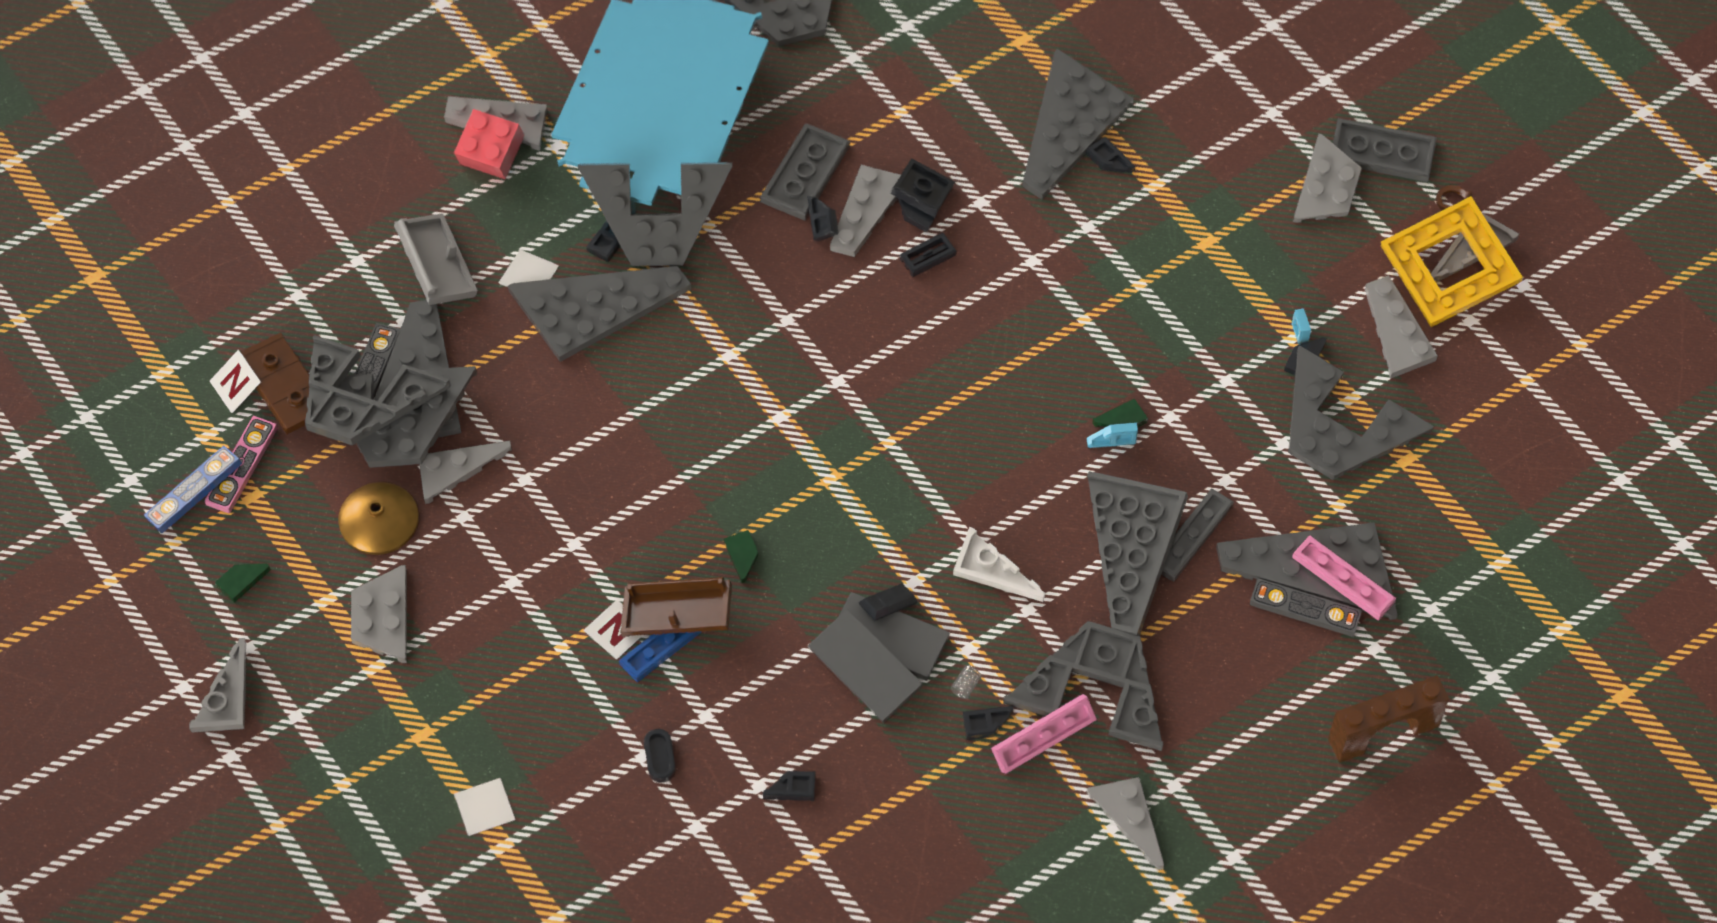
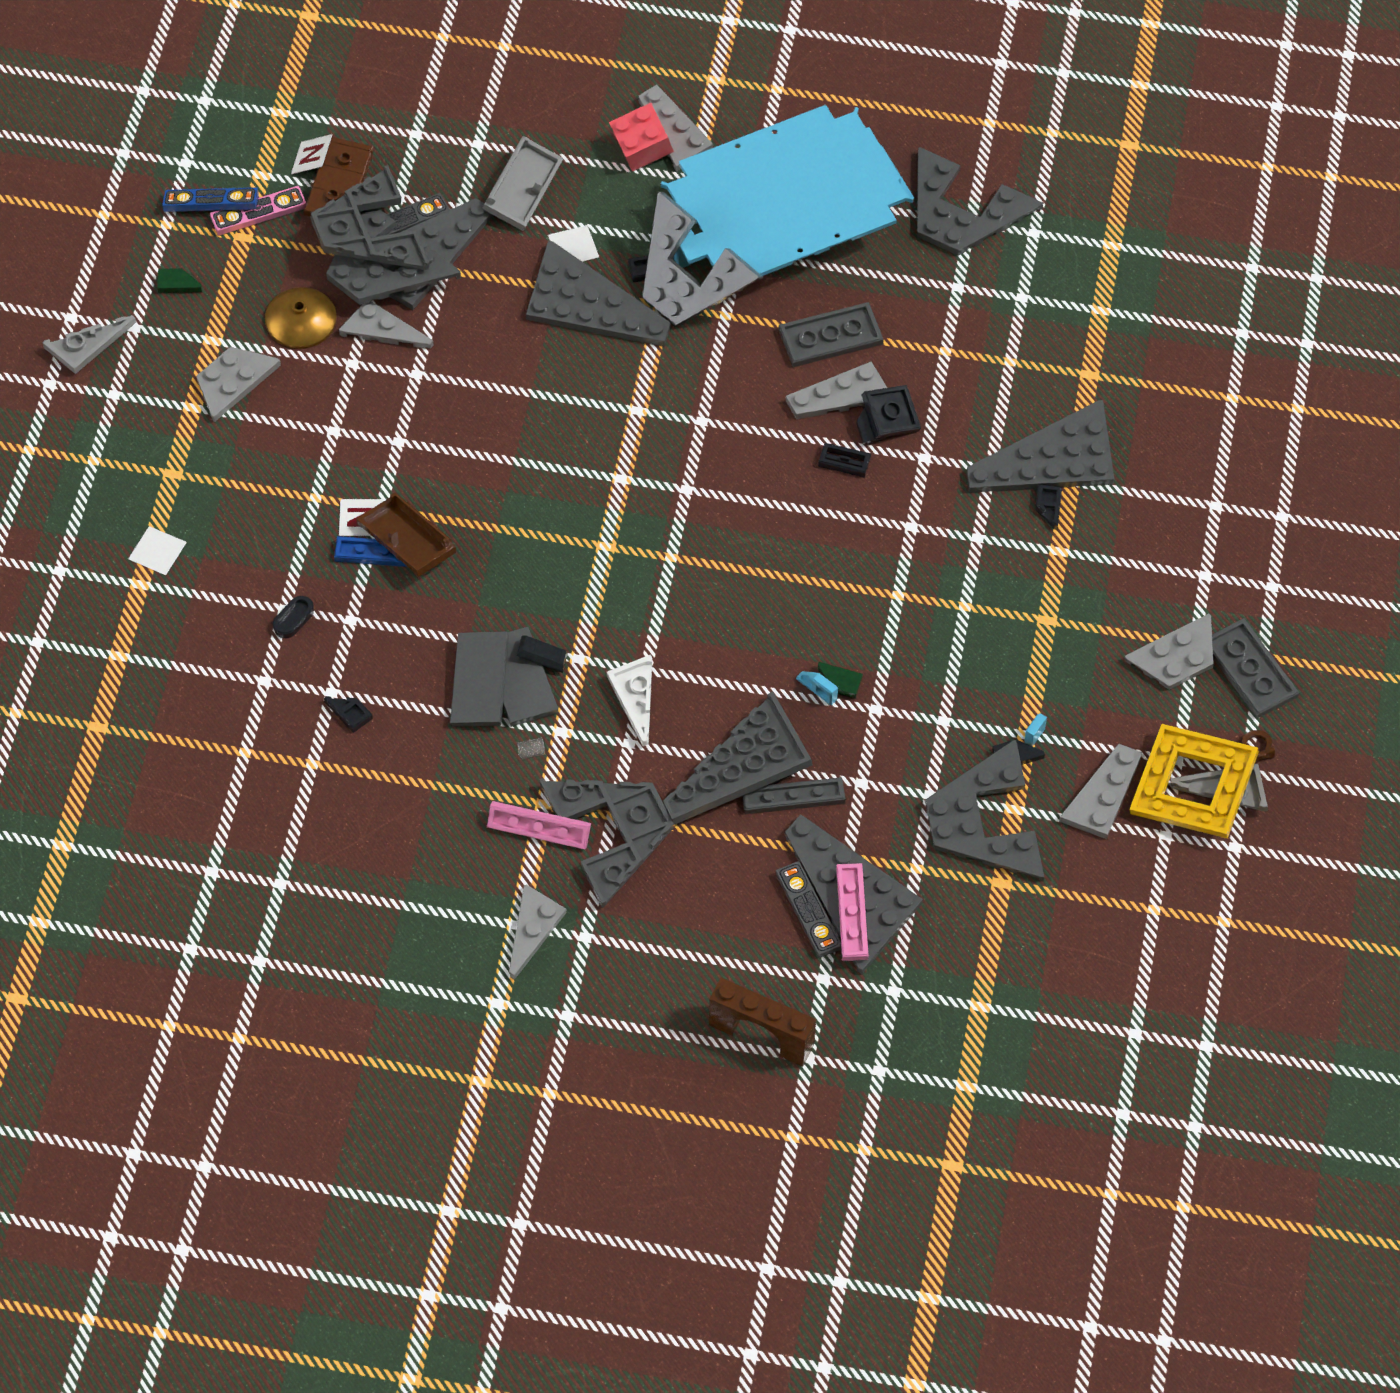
camera: 45 degrees right, 0 degrees up
(742, 553) = (491, 541): dark green tile -> none
(822, 219) = (799, 373): black tile -> none
(985, 722) = (514, 785): black tile -> none

